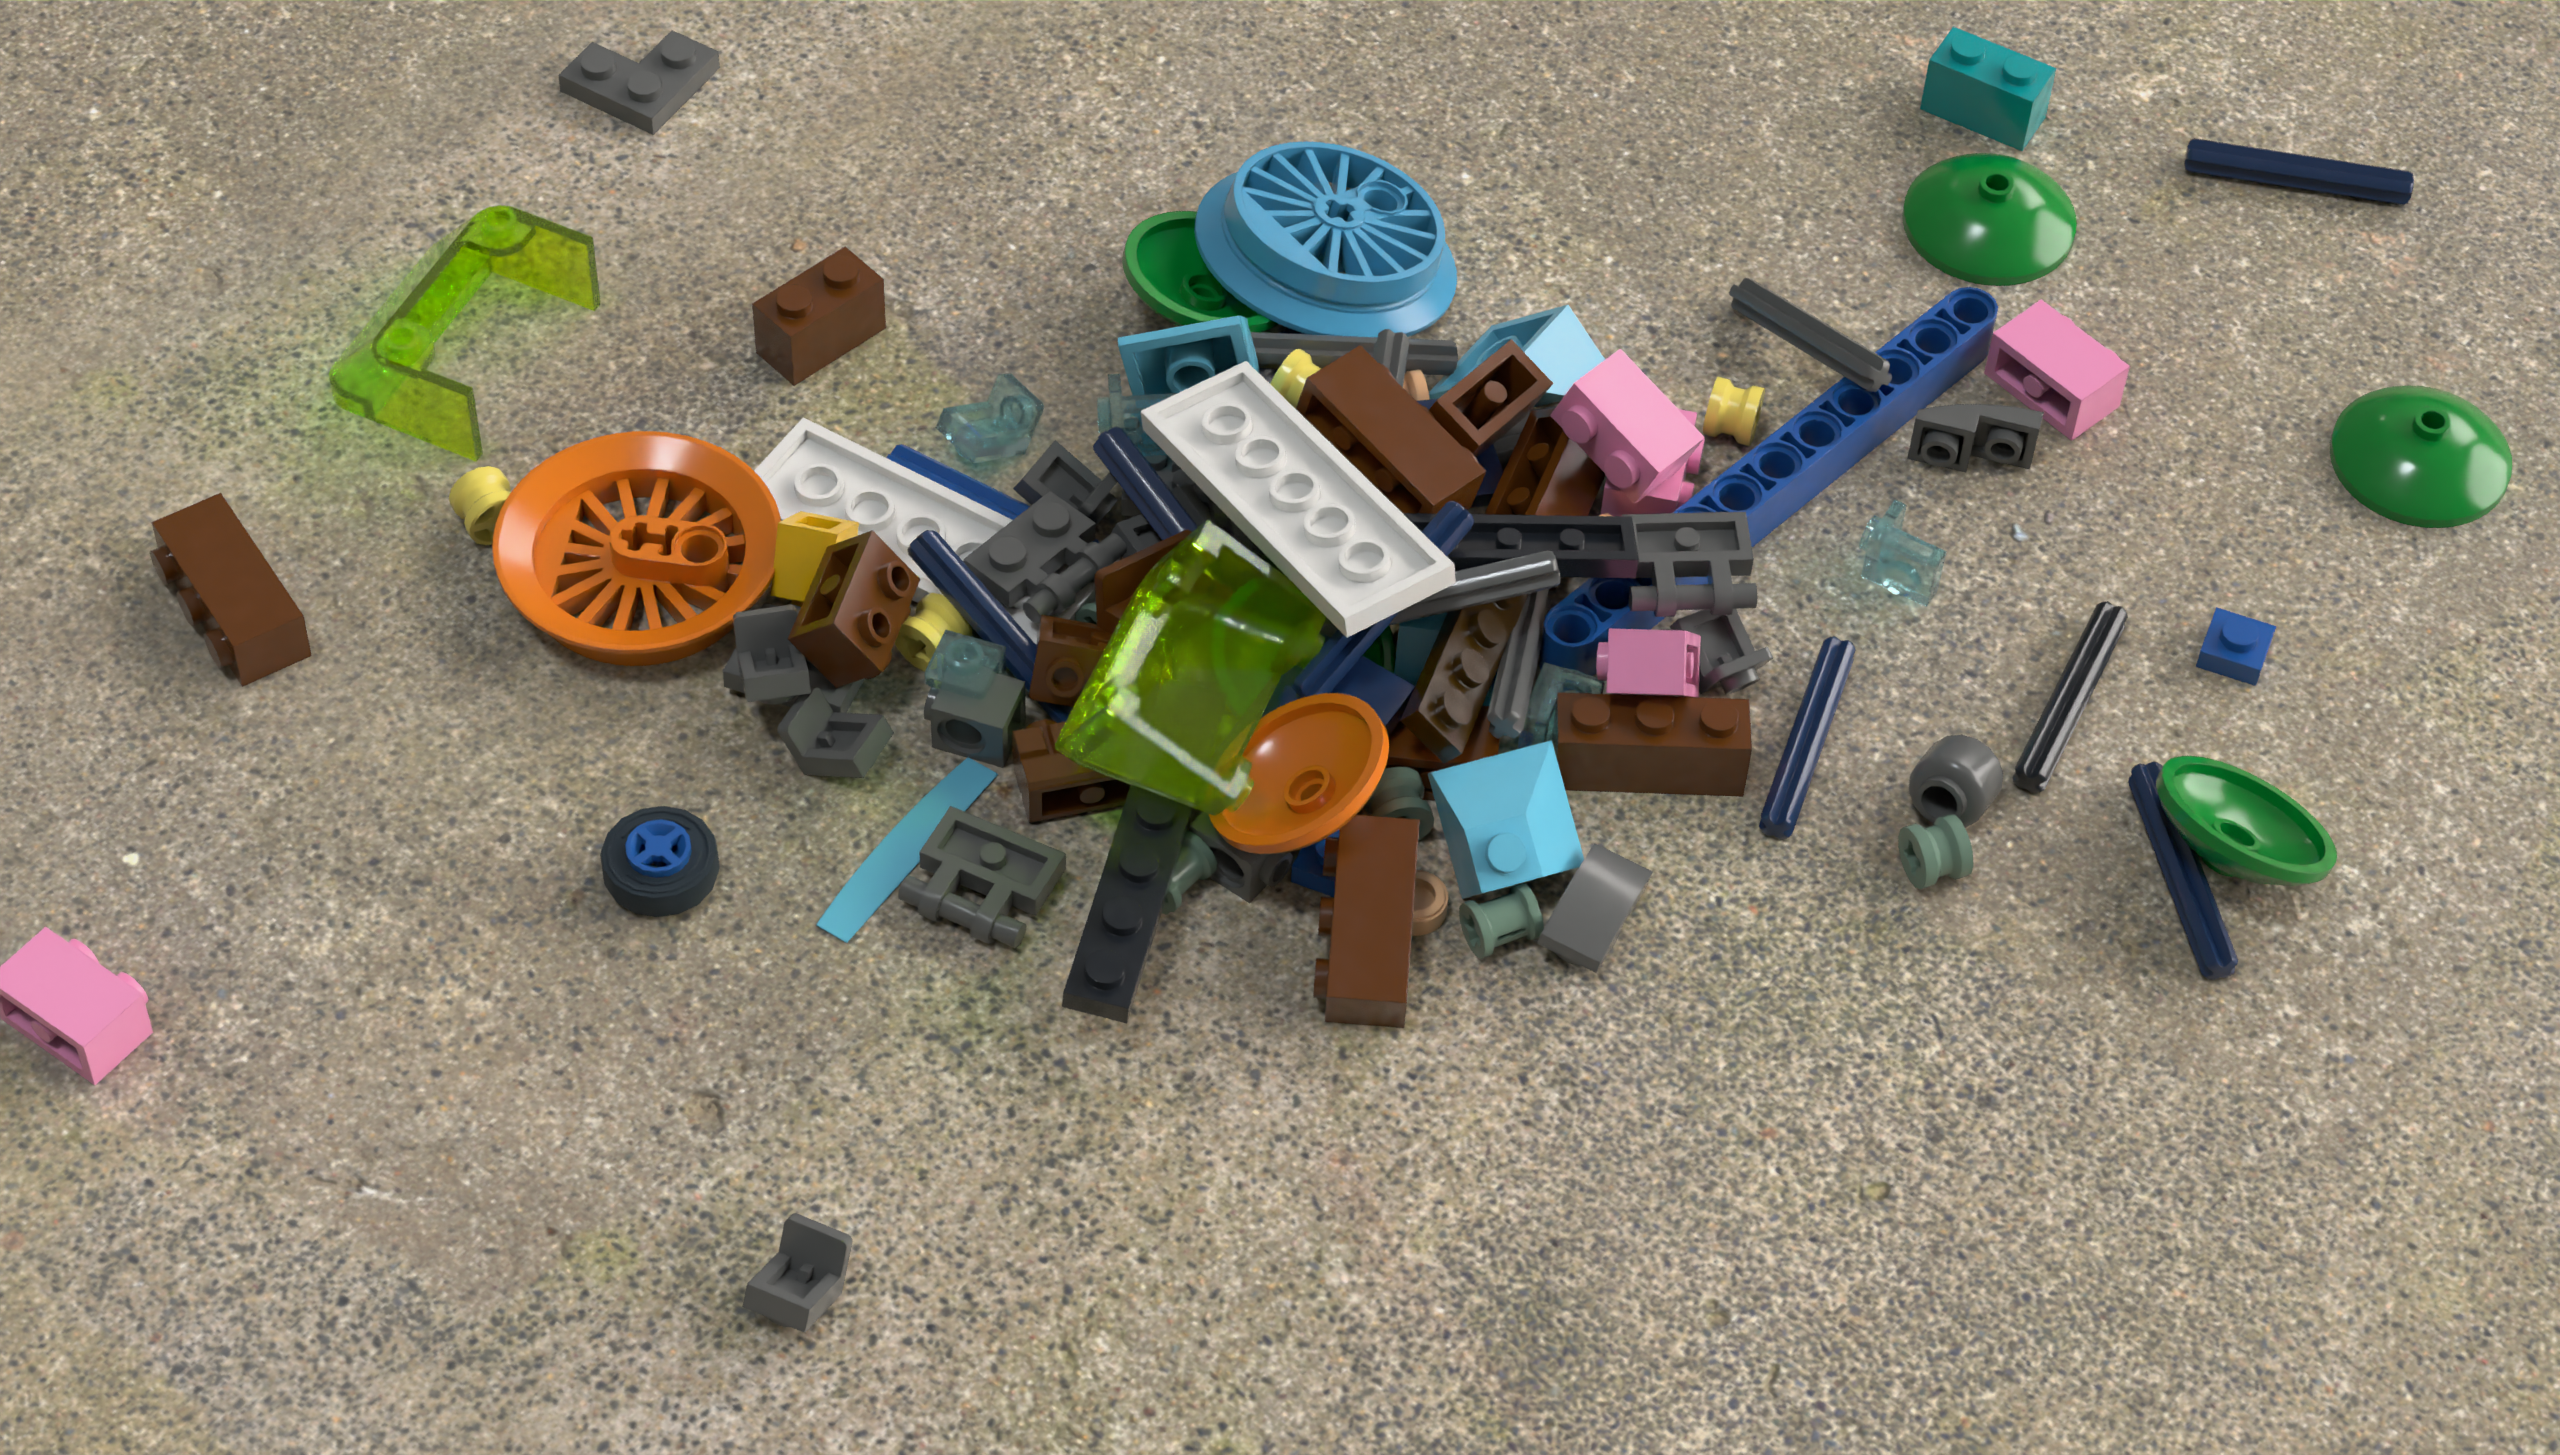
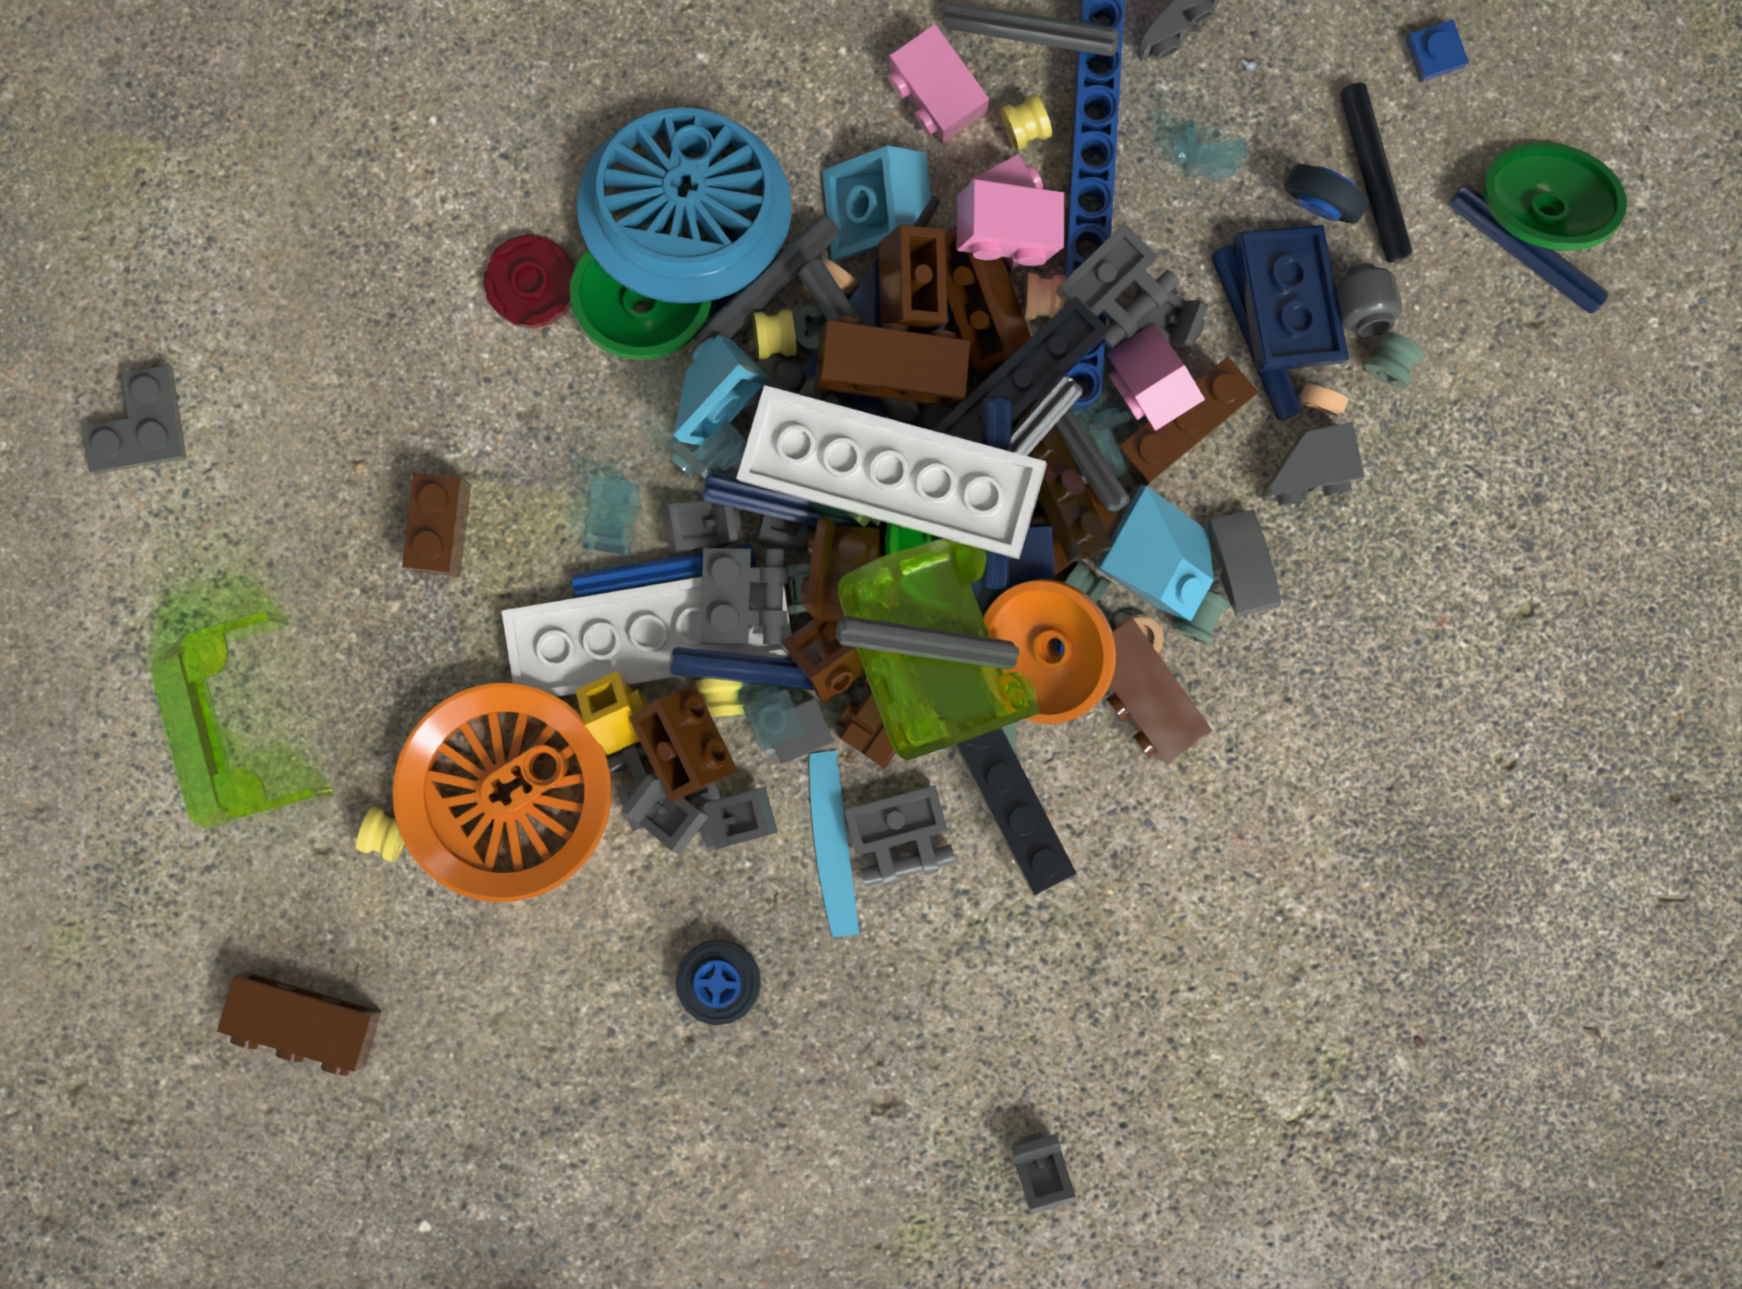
camera: 35 degrees left, 35 degrees up
(1105, 211) = (529, 281): none -> dark red tile
(1184, 654) = (926, 642): none -> dark grey axle
(1673, 326) = (937, 85): none -> bright pink brick
(1755, 876) = (1317, 461): none -> dark grey slope
(1823, 831) = (1323, 399): none -> light nougat tile
(1870, 725) = (1290, 298): none -> dark blue tile
(1992, 656) = (1326, 193): none -> black wheel

